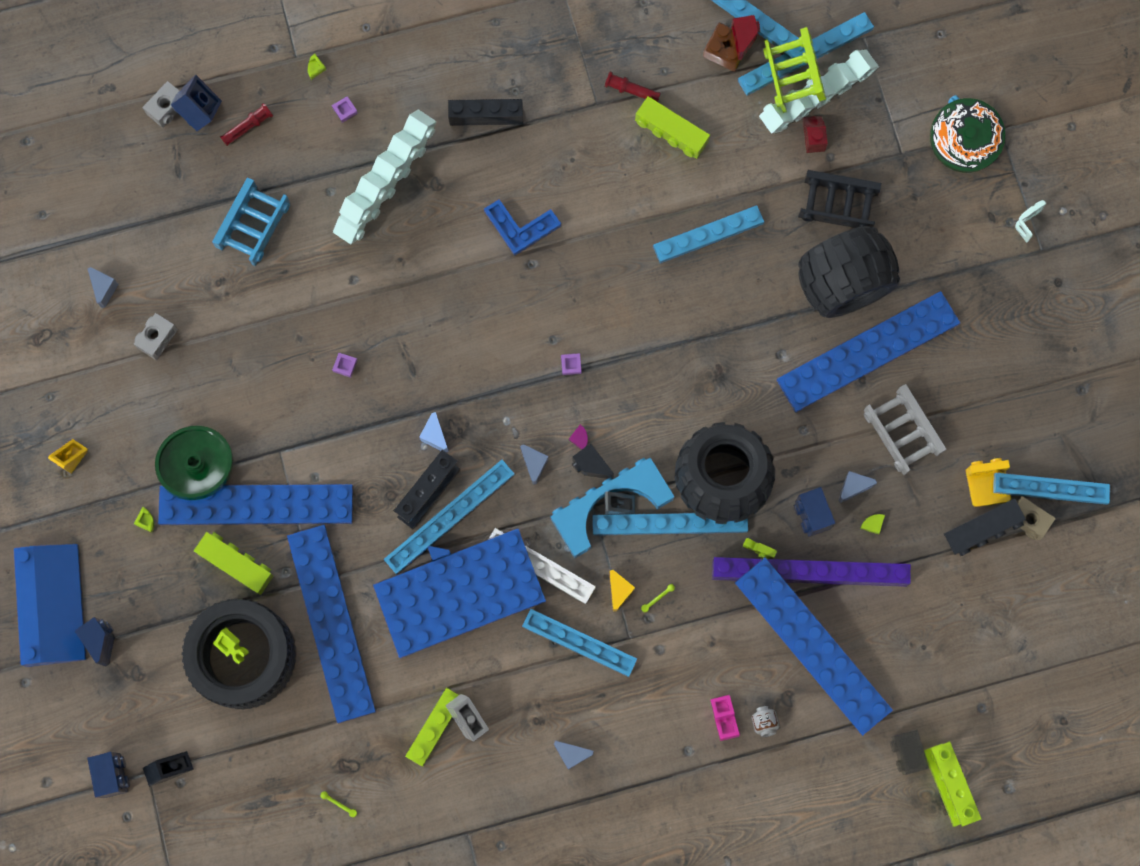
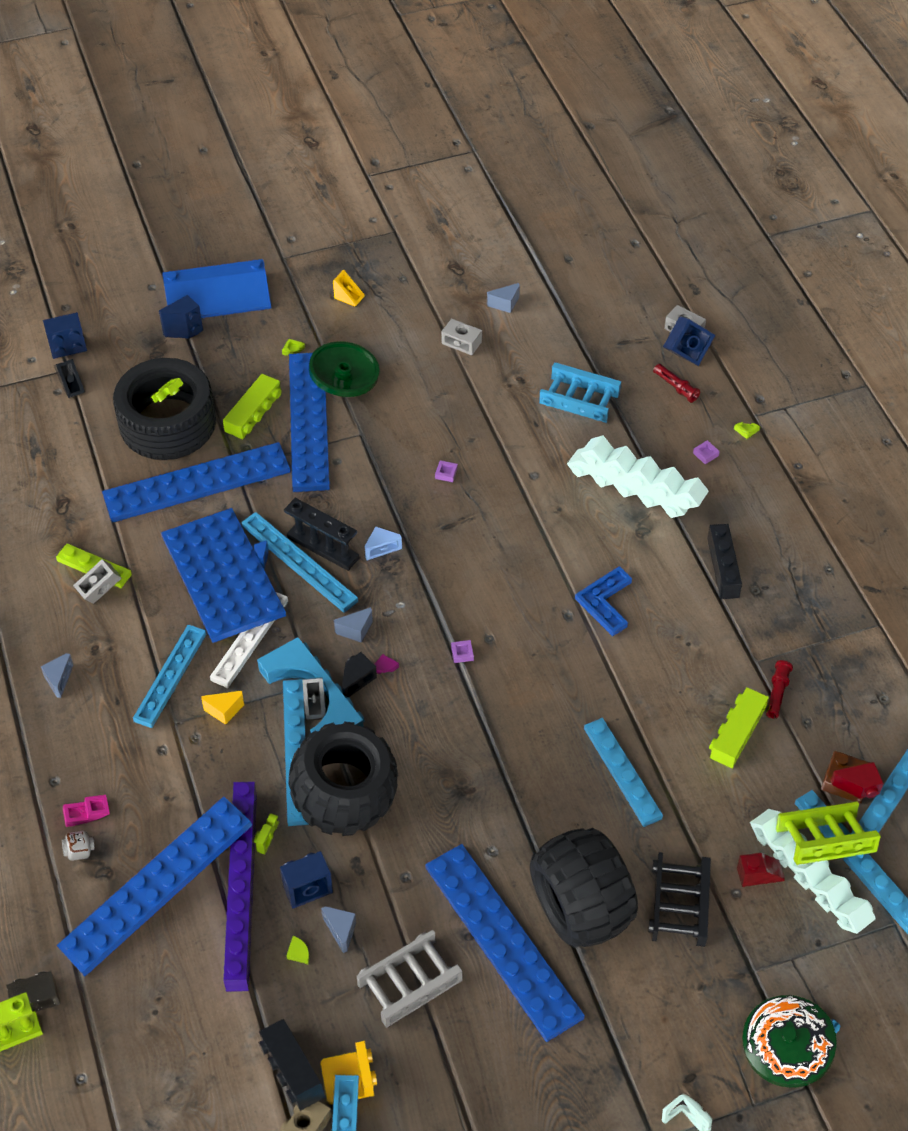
camera: 85 degrees right, 25 degrees down
(352, 813) = (18, 511): lime hinge -> none
(645, 608) = (206, 734): lime hinge -> none

